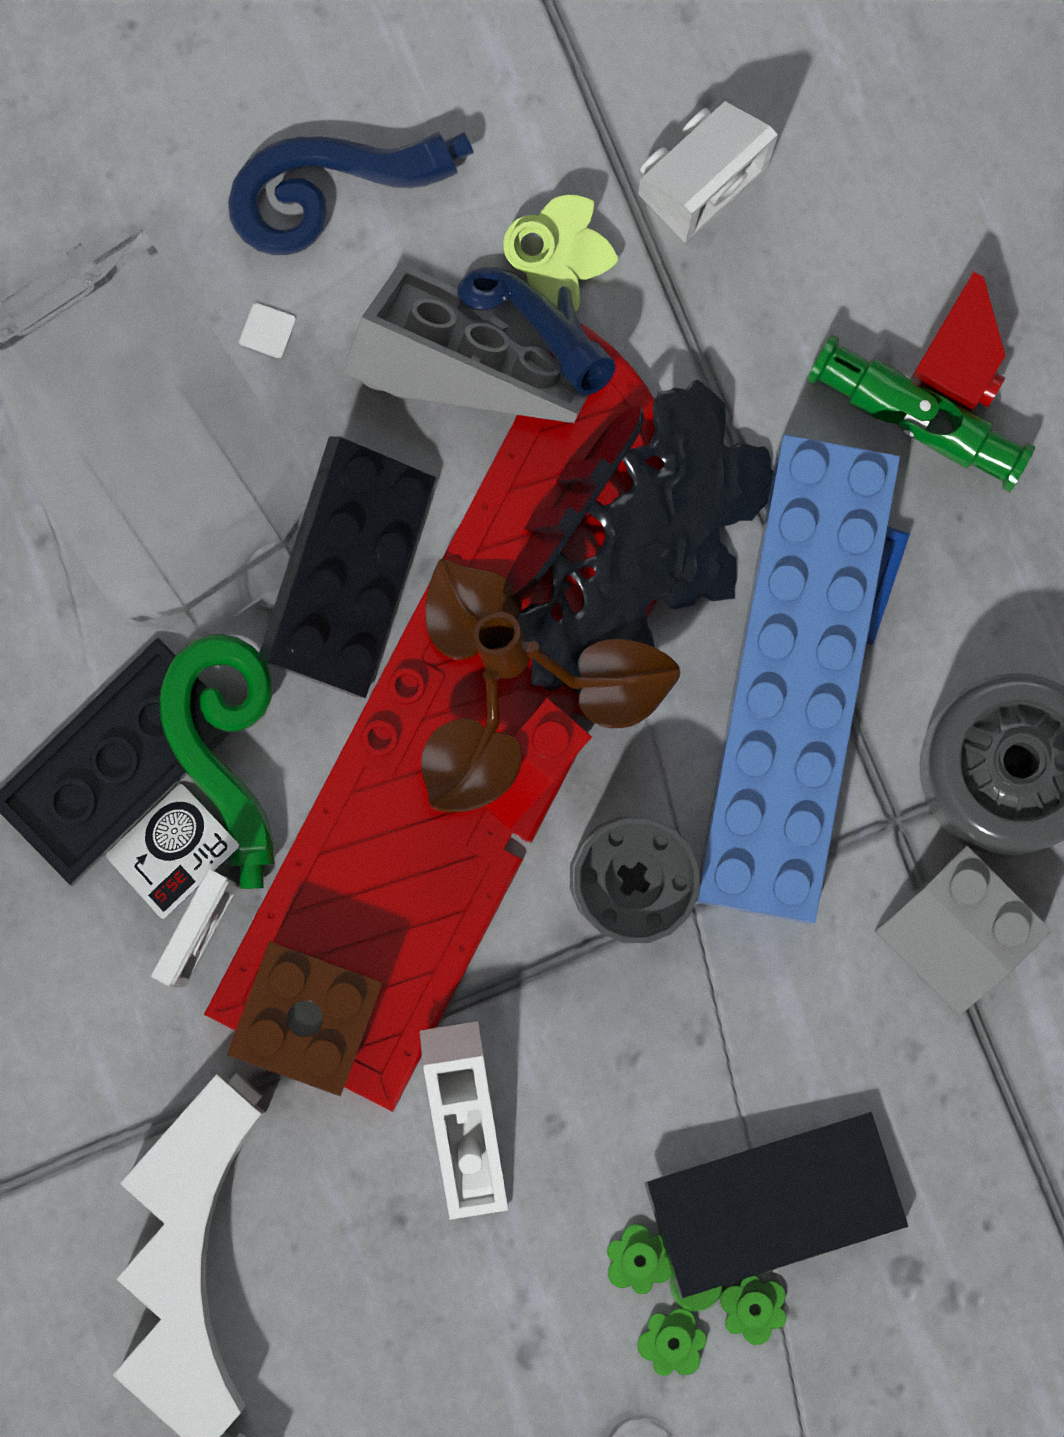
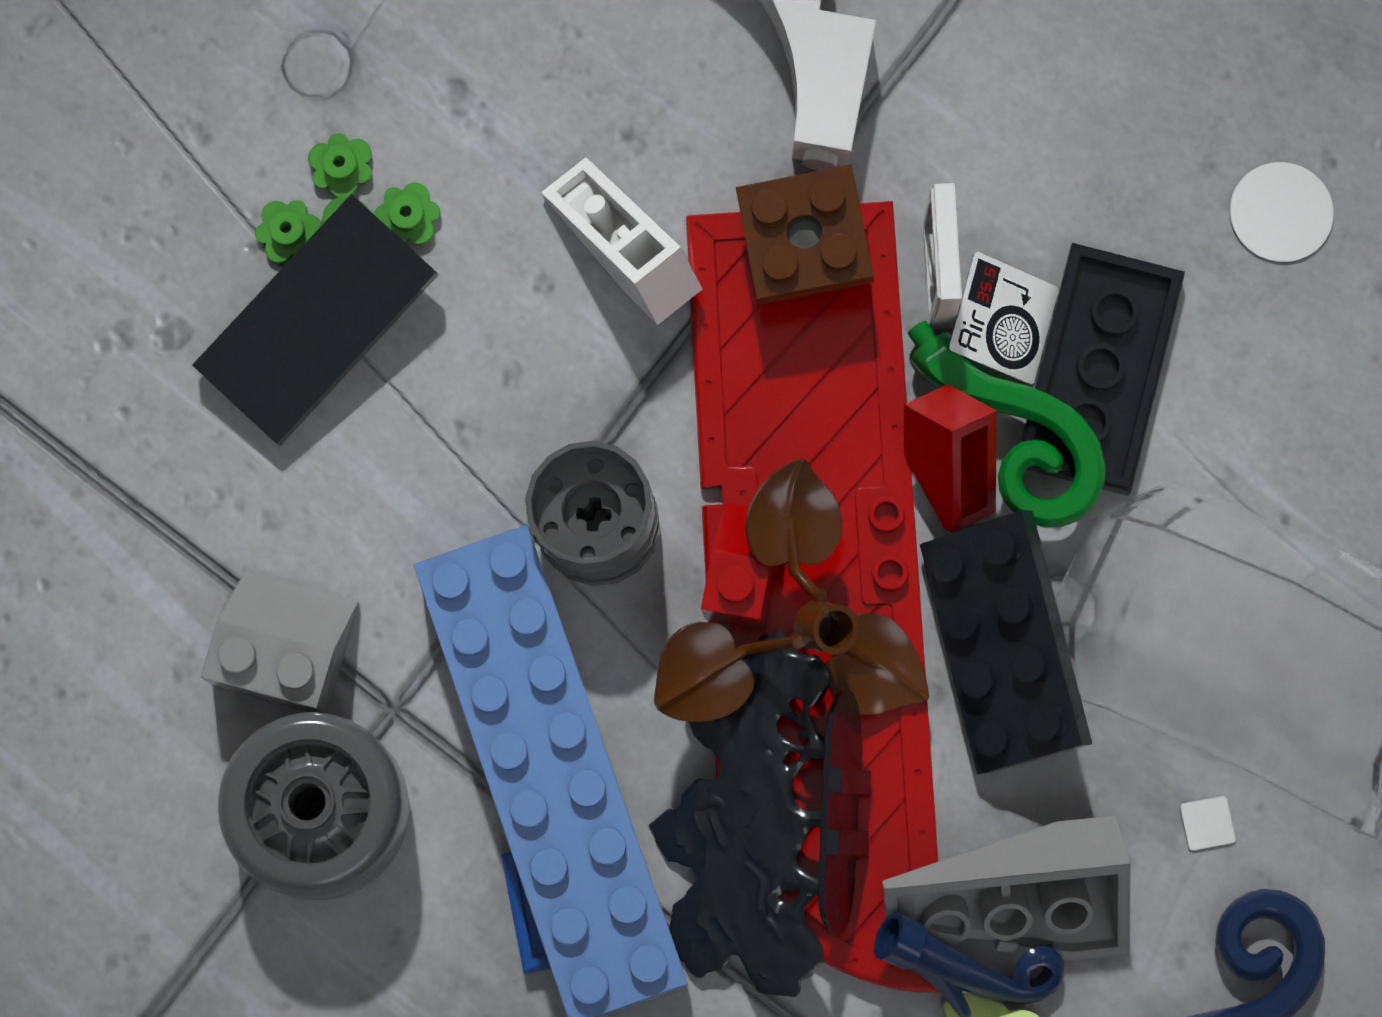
camera: 155 degrees right, 5 degrees down
(291, 754) = (953, 454): none -> red slope

